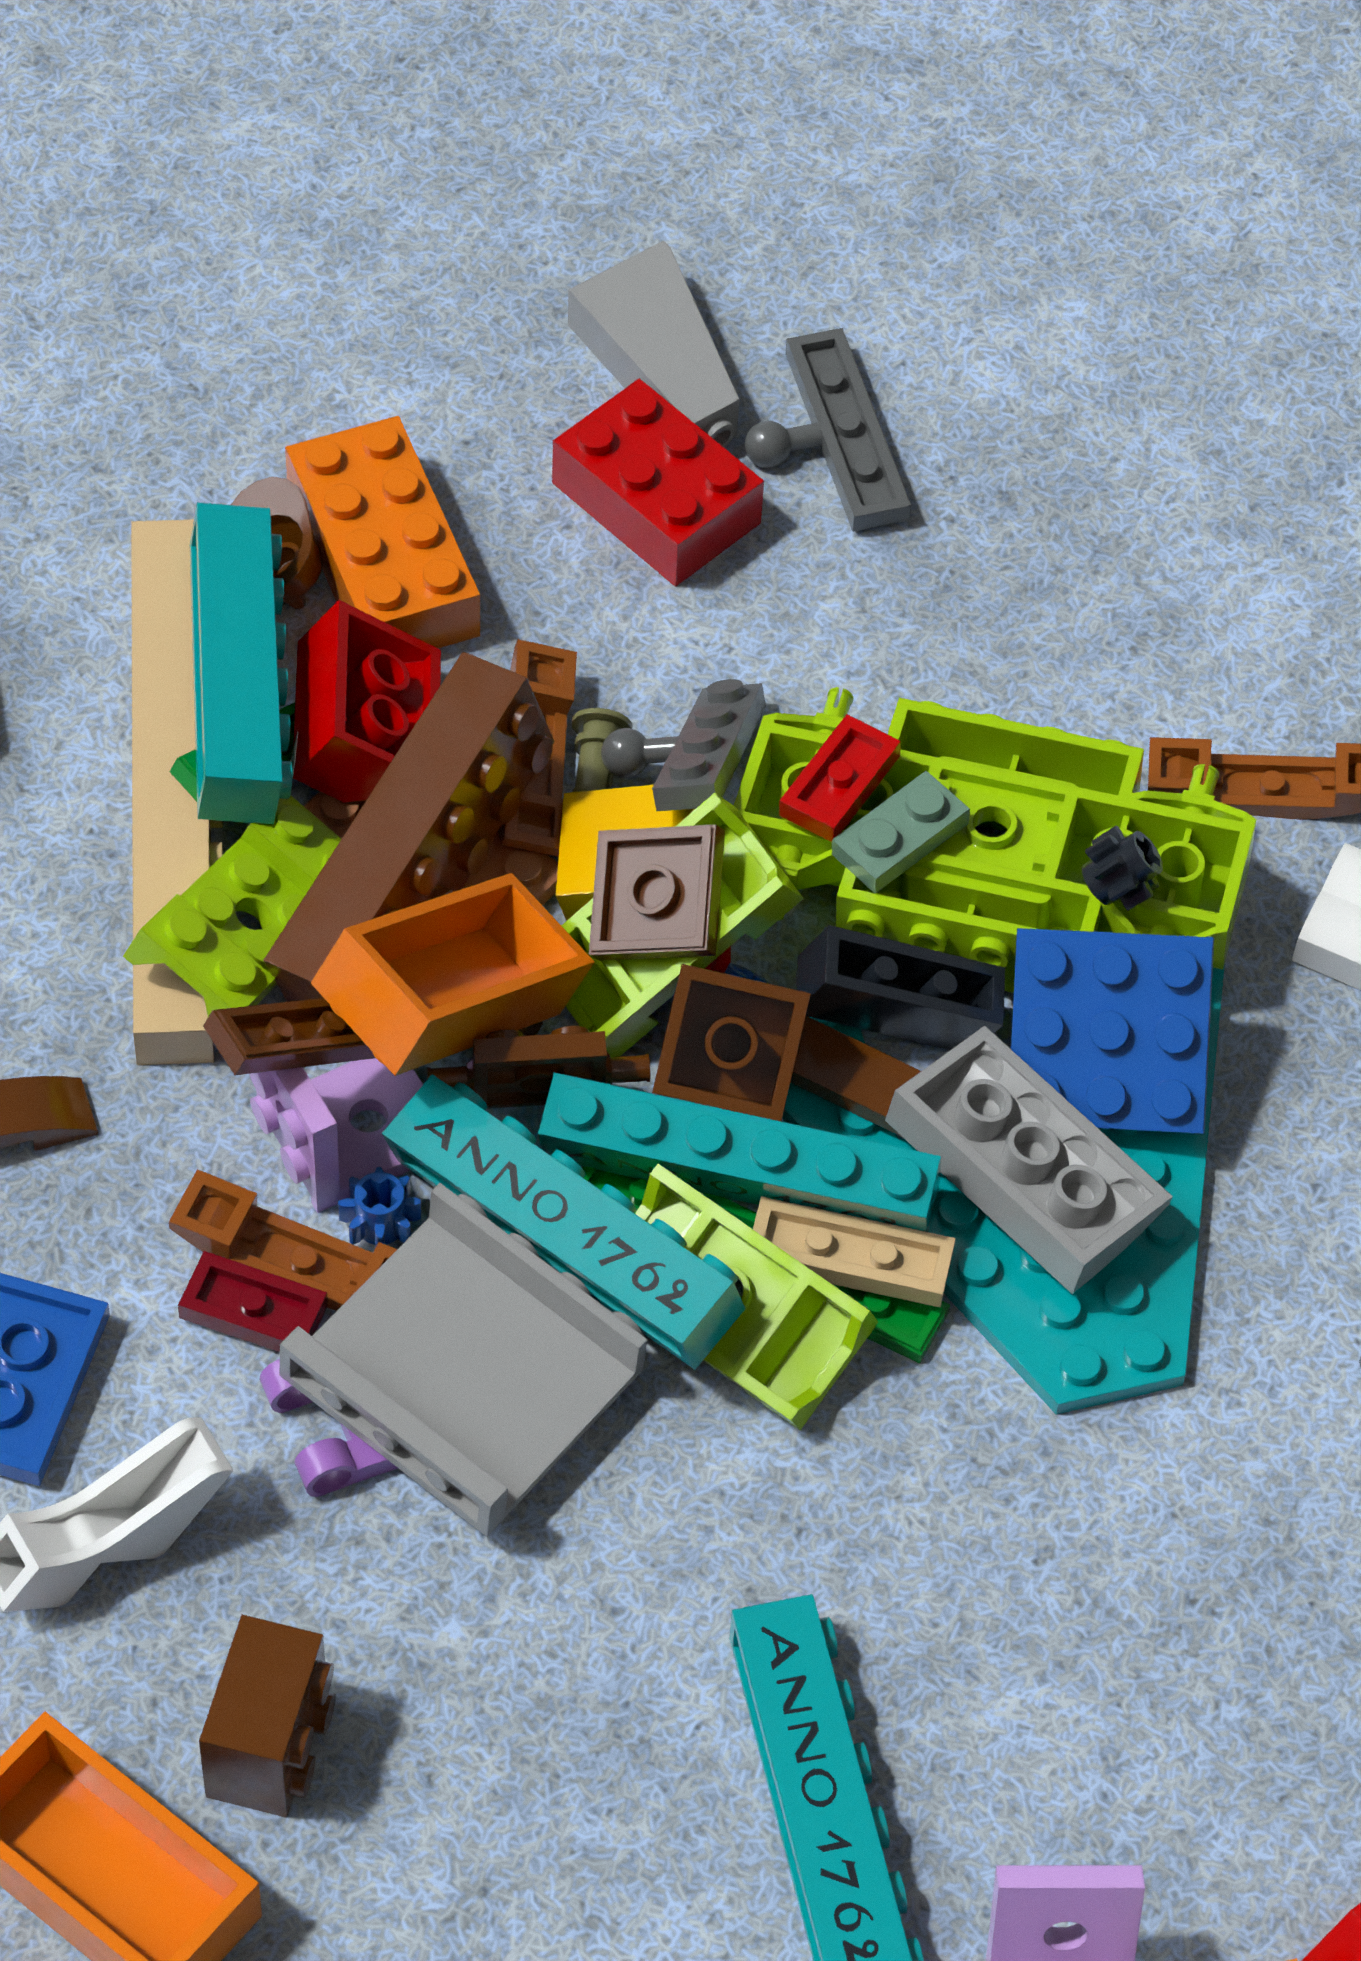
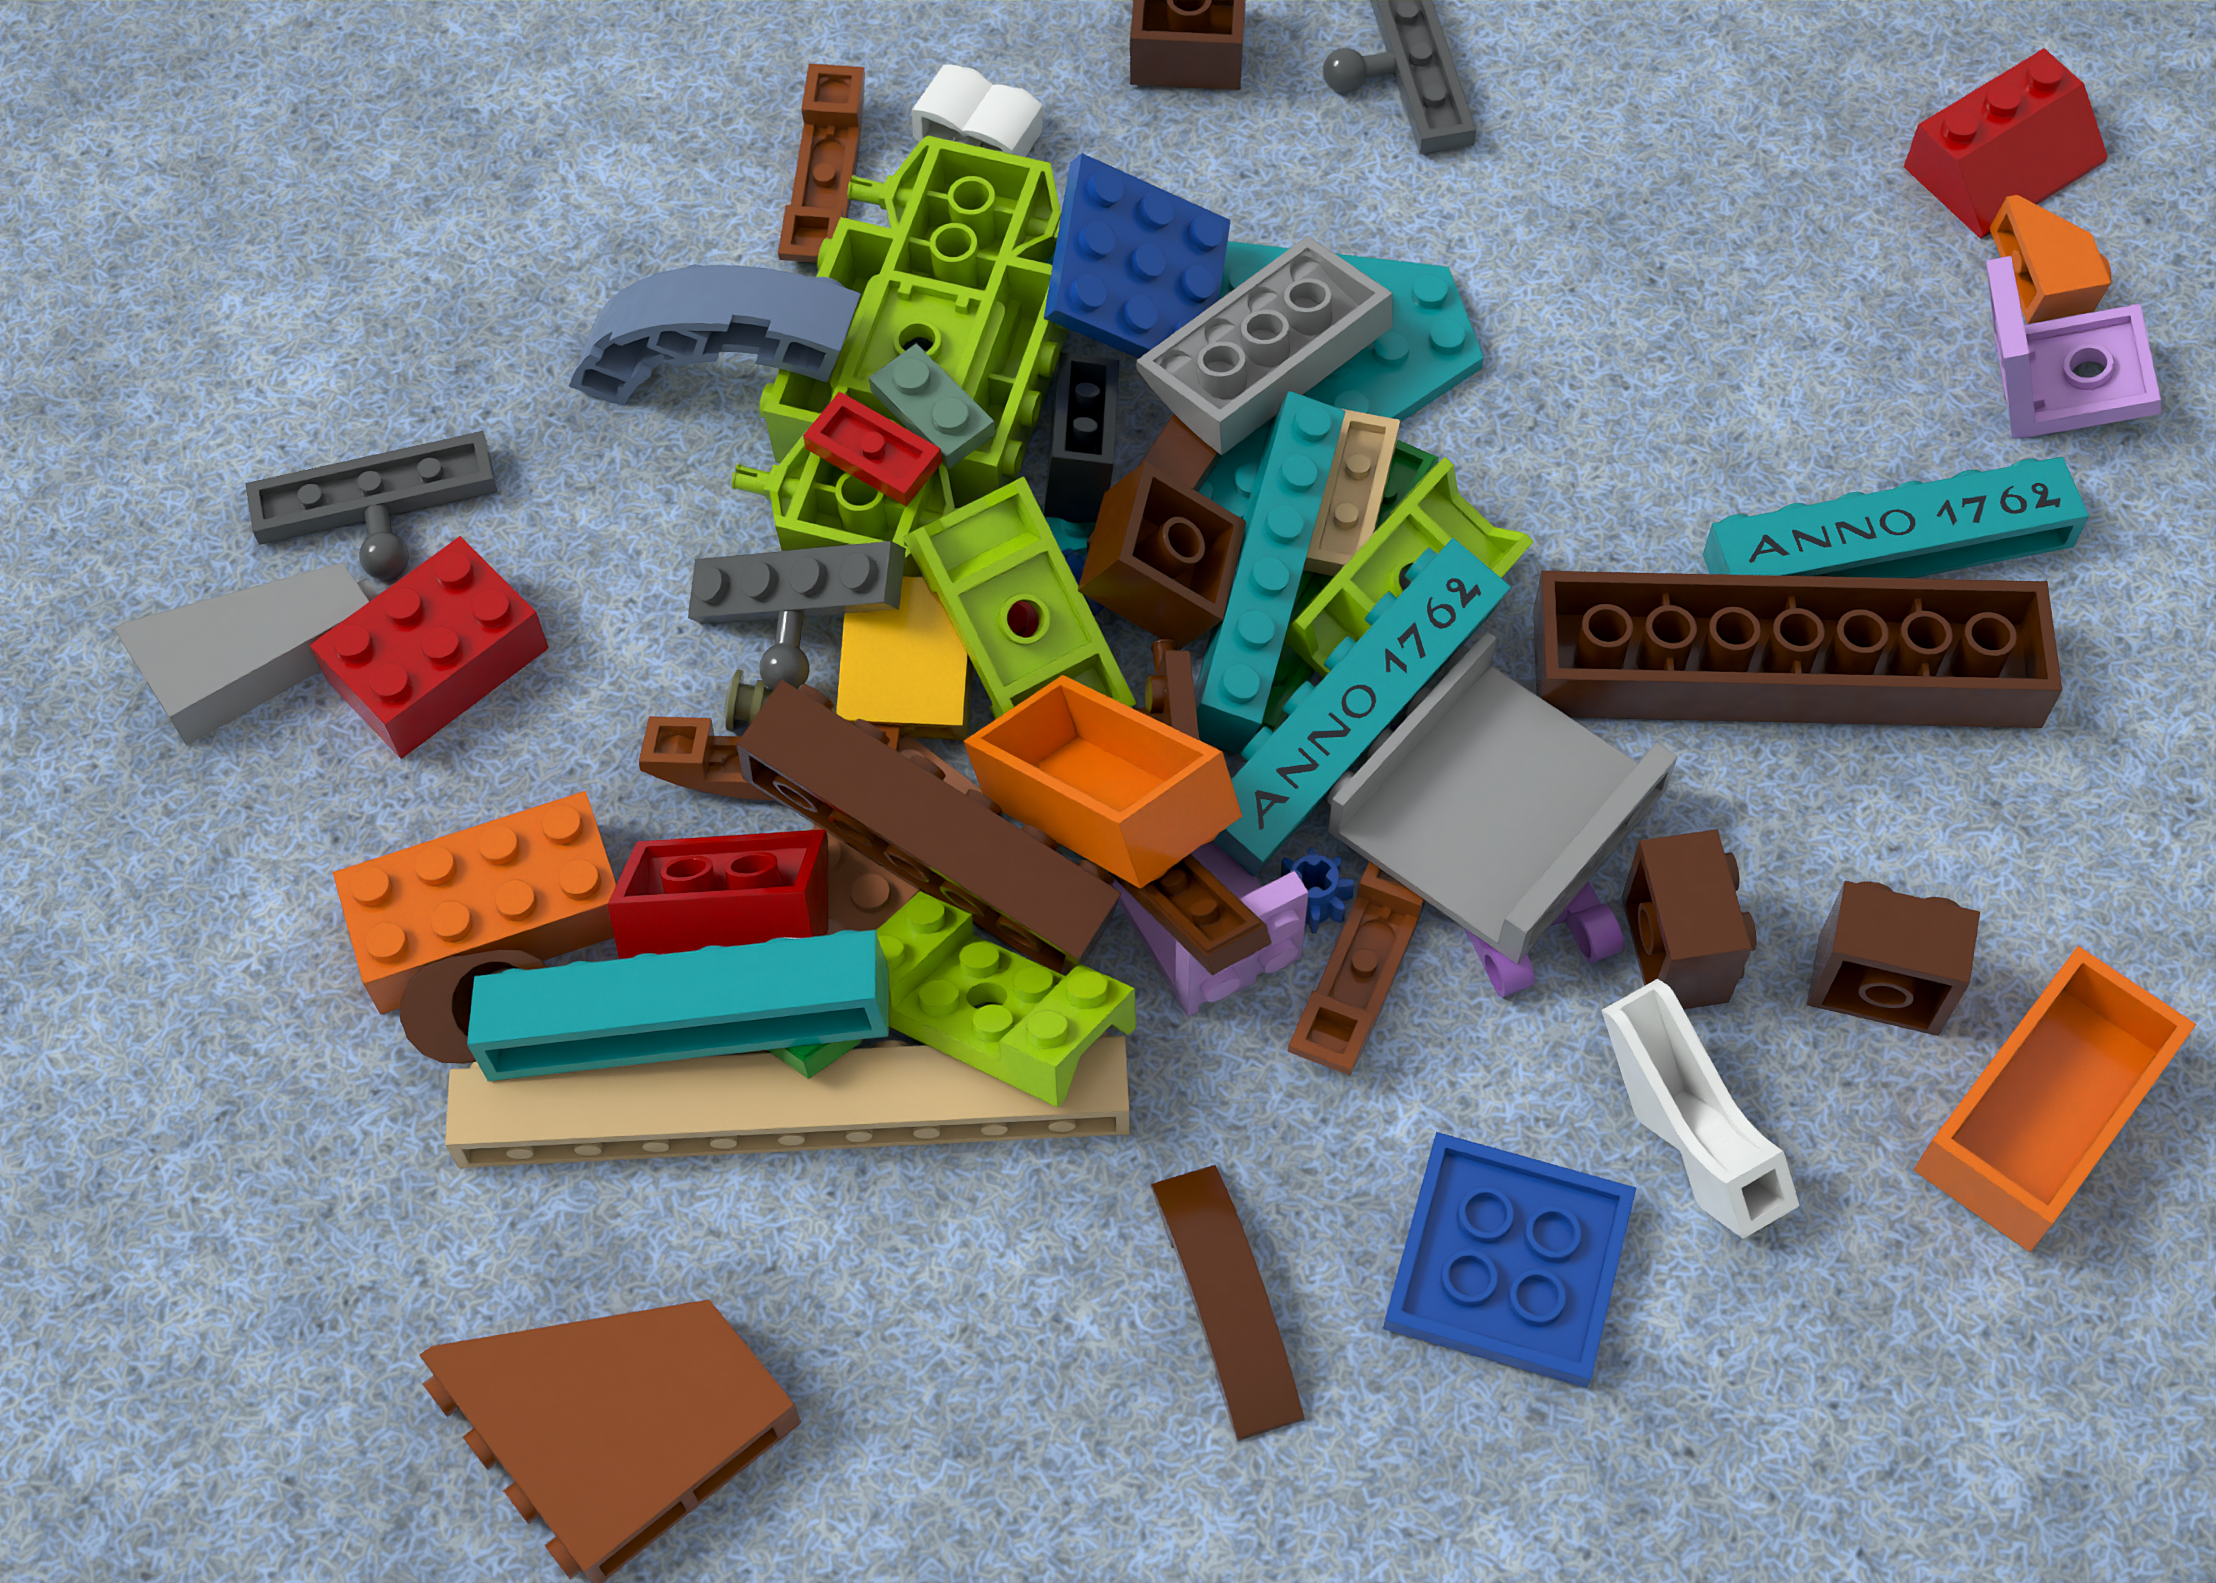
camera: 85 degrees left, 5 degrees up
(249, 1302) = (1422, 1004): dark red plate -> none
(314, 1523) = (1688, 917): none -> reddish brown brick
(656, 1677) = (1796, 649): none -> reddish brown brick
(657, 892) = (1004, 603): tile -> none
(996, 631) = (710, 310): none -> sand blue brick
(1122, 868) = (999, 219): black gear -> none

